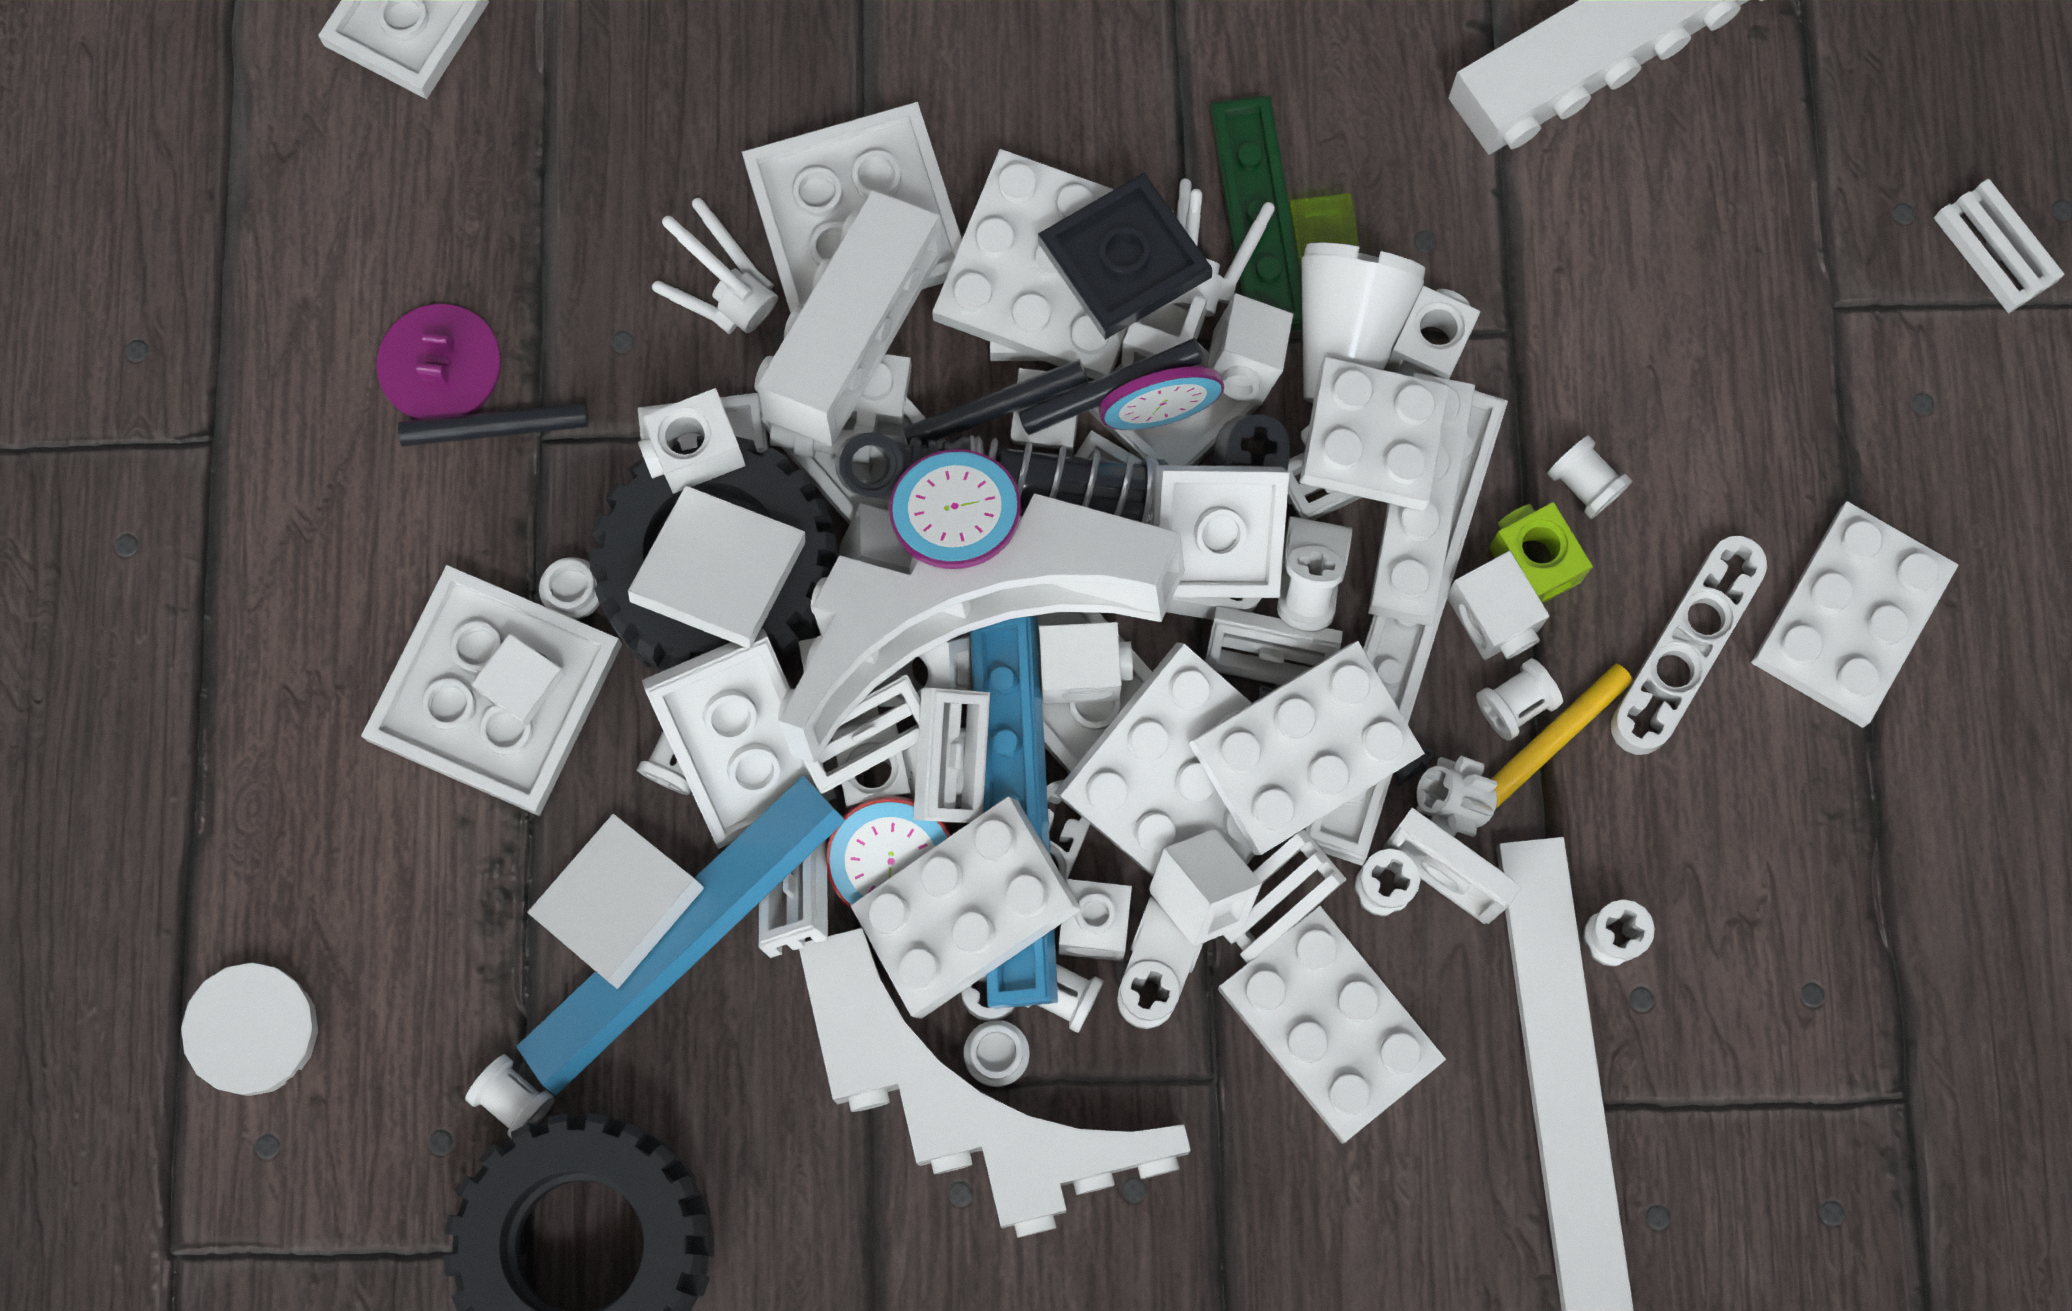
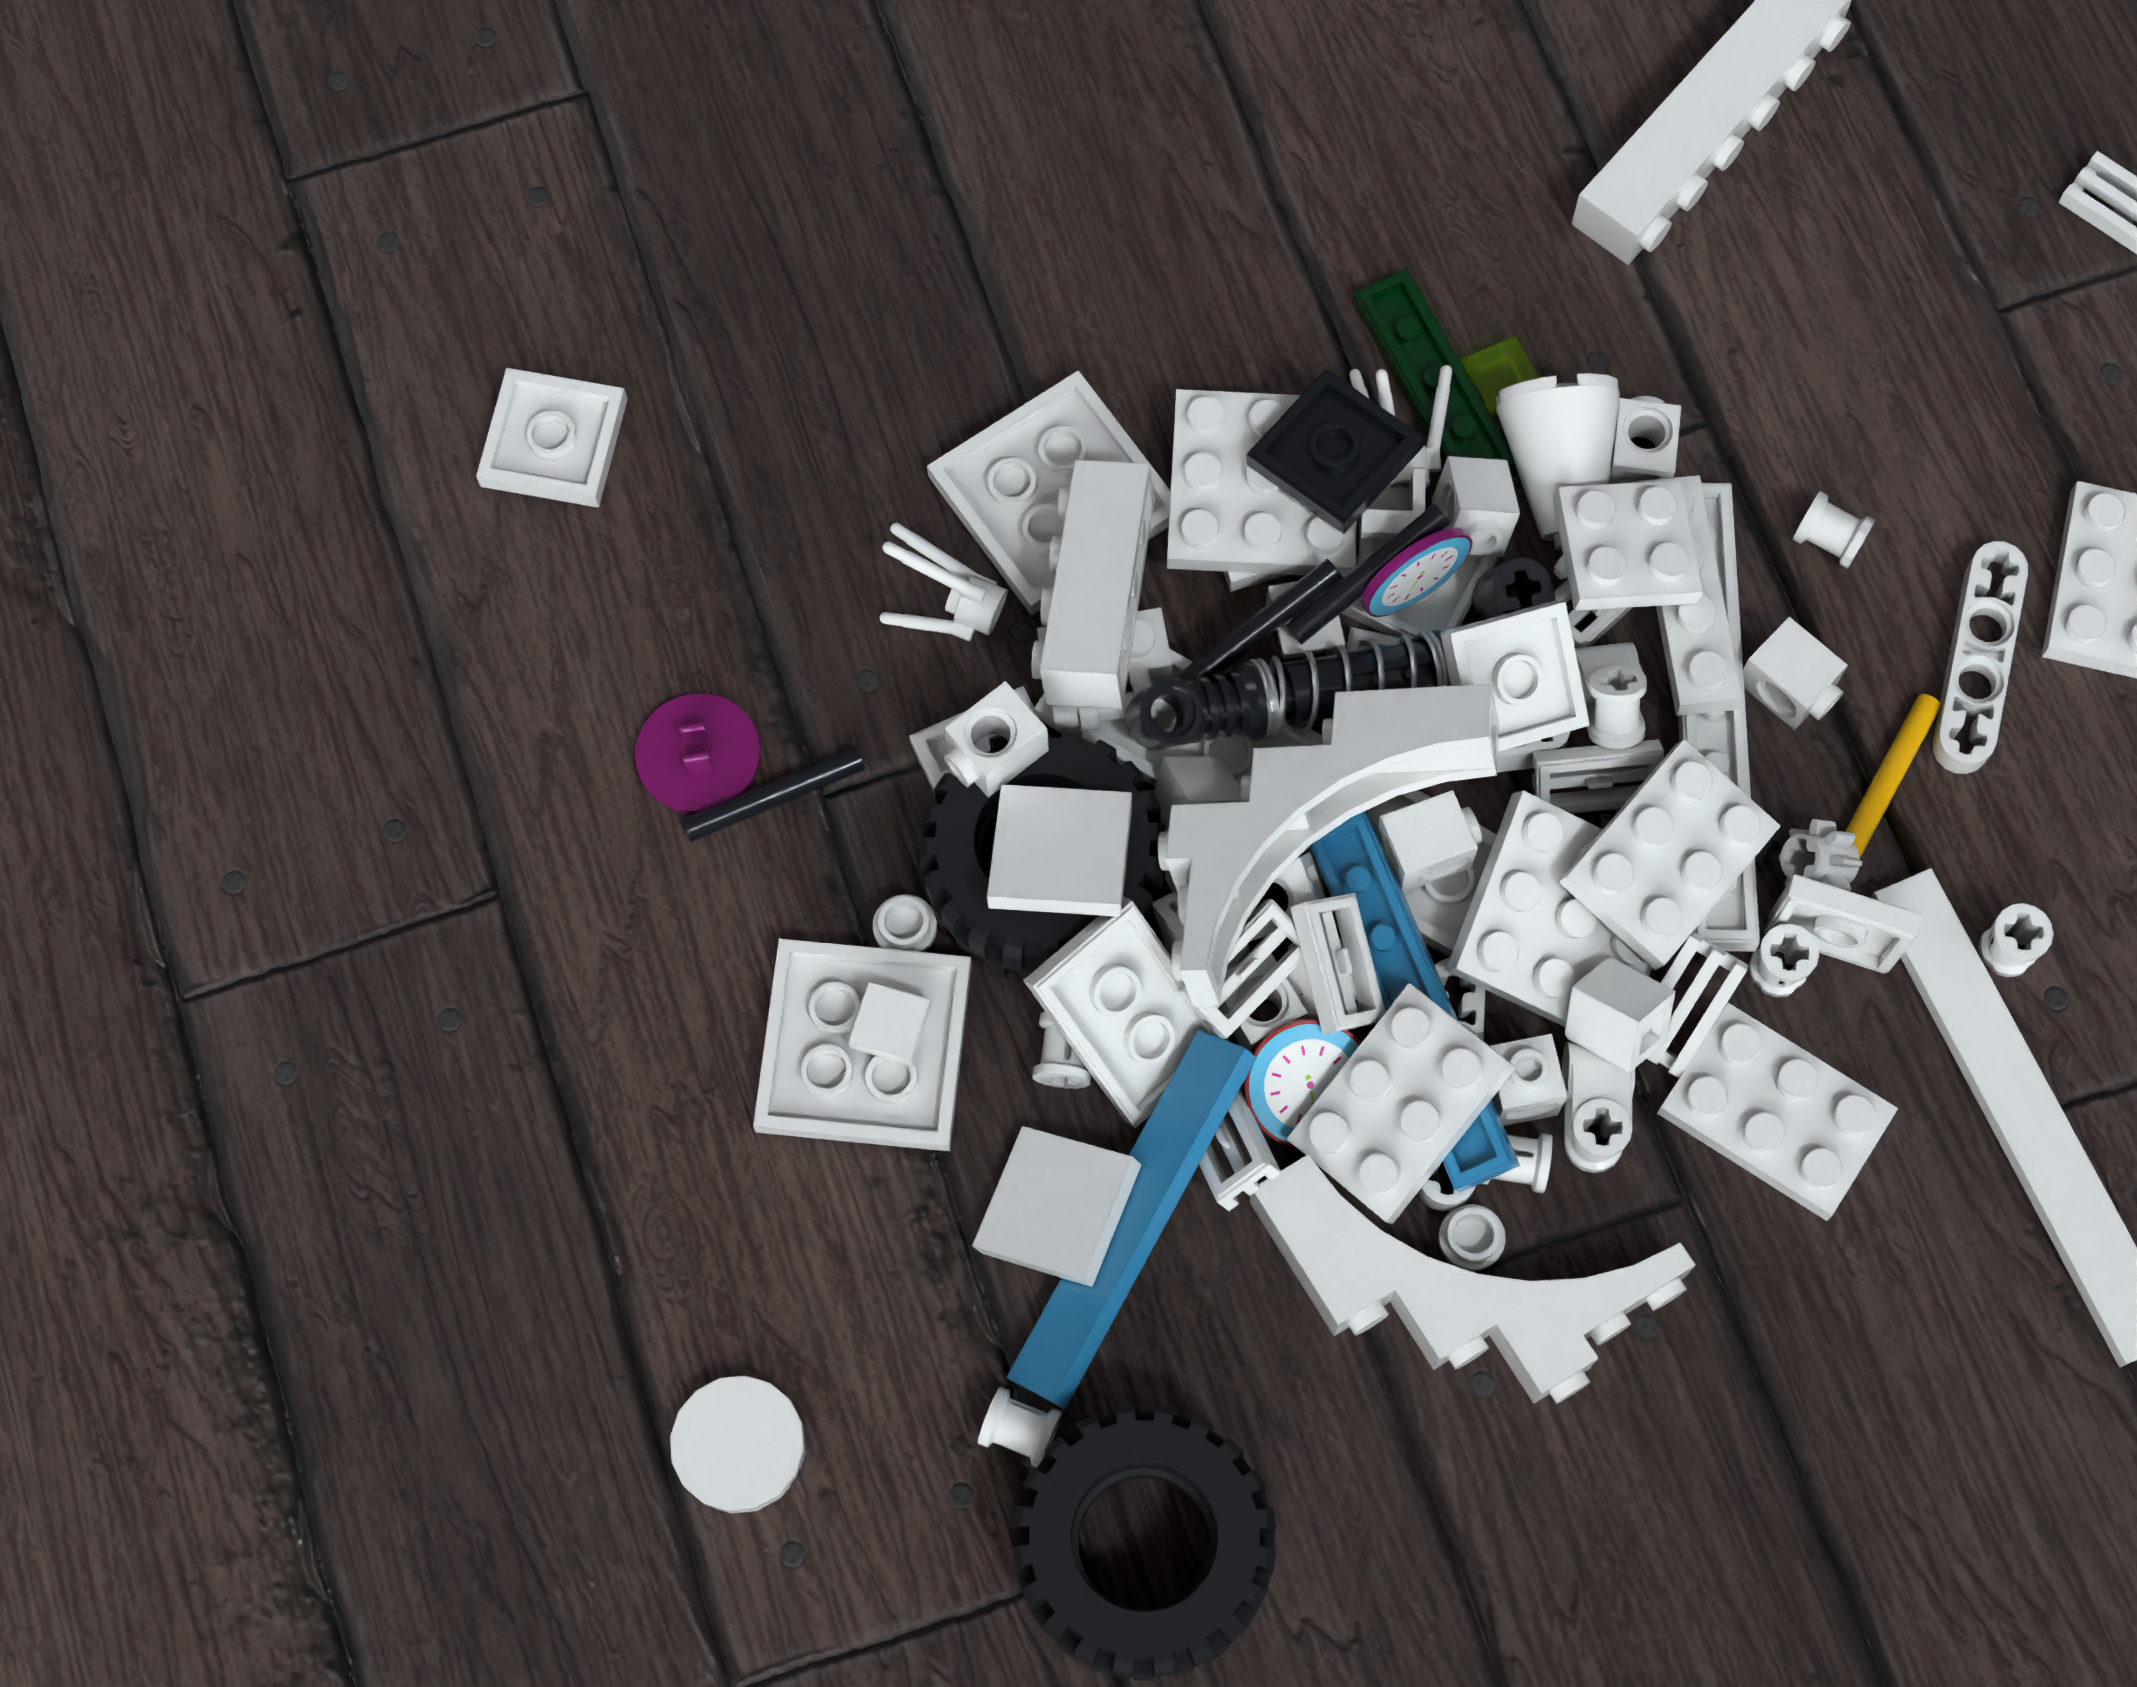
camera: 15 degrees left, 5 degrees down
(955, 509) = (1267, 728): piece -> none
(1519, 699) = (1843, 753): white bush -> none
(1568, 561) = (1816, 587): lime brick -> none

